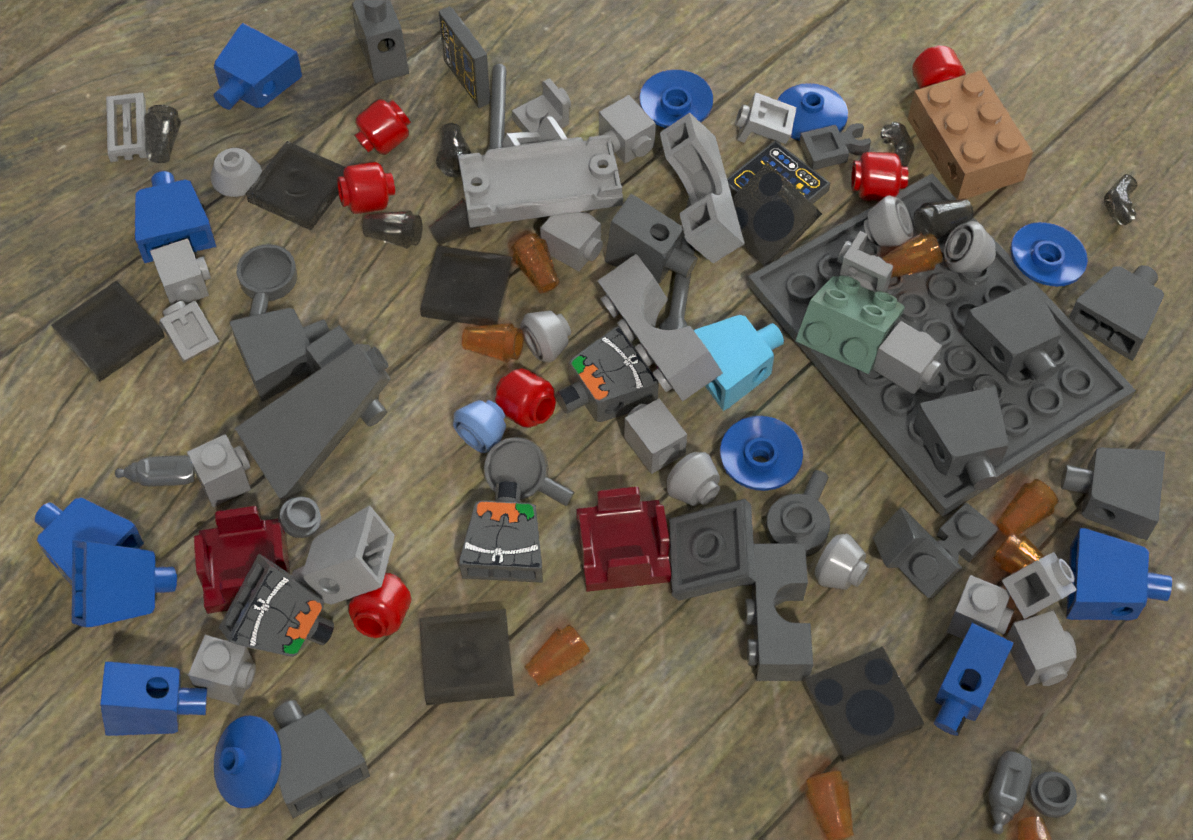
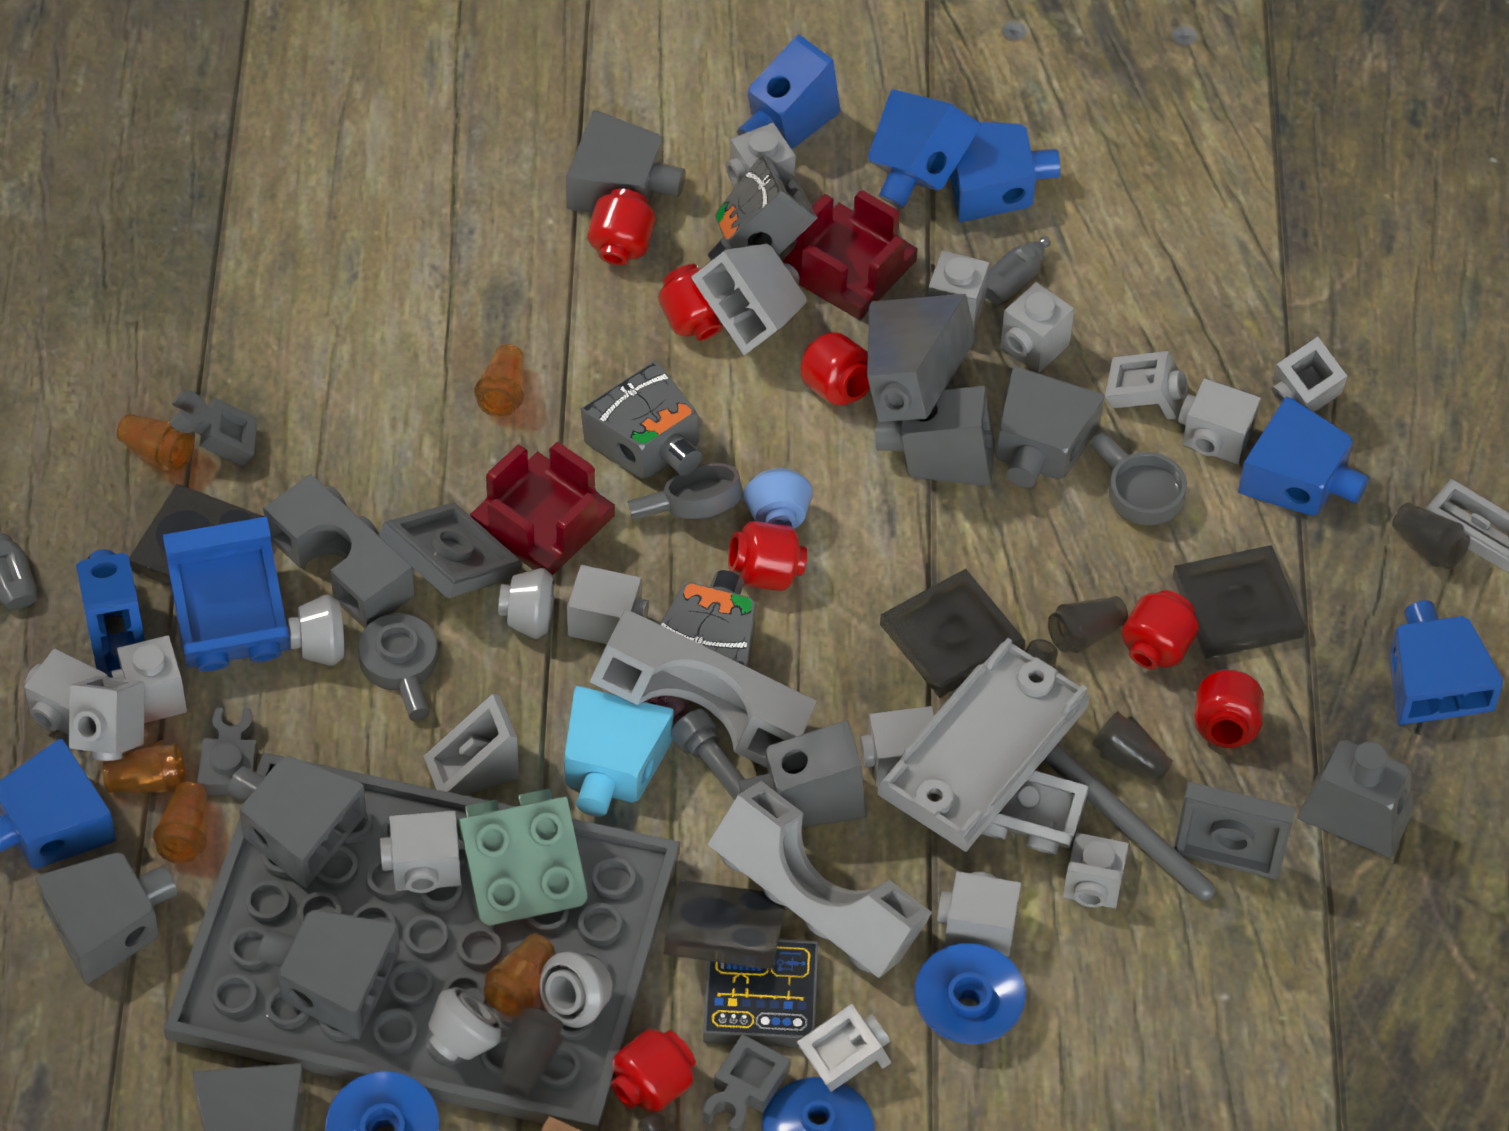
camera: 135 degrees right, 5 degrees down
(107, 246) = (1309, 376): none -> light grey brick
(108, 331) = (1222, 339): clear smoke tile -> none
(204, 408) = (1037, 327): none -> light grey brick
(234, 172) = (1310, 558): light grey cone -> none
(247, 761) = (664, 121): blue dish -> none
(299, 517) = (847, 316): dark grey plate -> none
(348, 482) = (836, 369): none -> red head
(362, 705) = (621, 226): none -> red head
(466, 657) = (579, 326): clear smoke plate -> none
(494, 341) = (857, 590): clear orange cone -> none
(535, 261) = (906, 692): clear orange cone -> none
(545, 334) = (815, 626): light grey cone -> none
(763, 438) = (486, 659): blue dish -> none
(783, 766) = (221, 426): none -> dark grey plate
(815, 413) = (476, 752): none -> light grey slope
(868, 269) = (559, 912): light grey bracket -> none
(885, 627) = (226, 594): none -> blue panel
(916, 553) = (273, 693): dark grey slope -> none

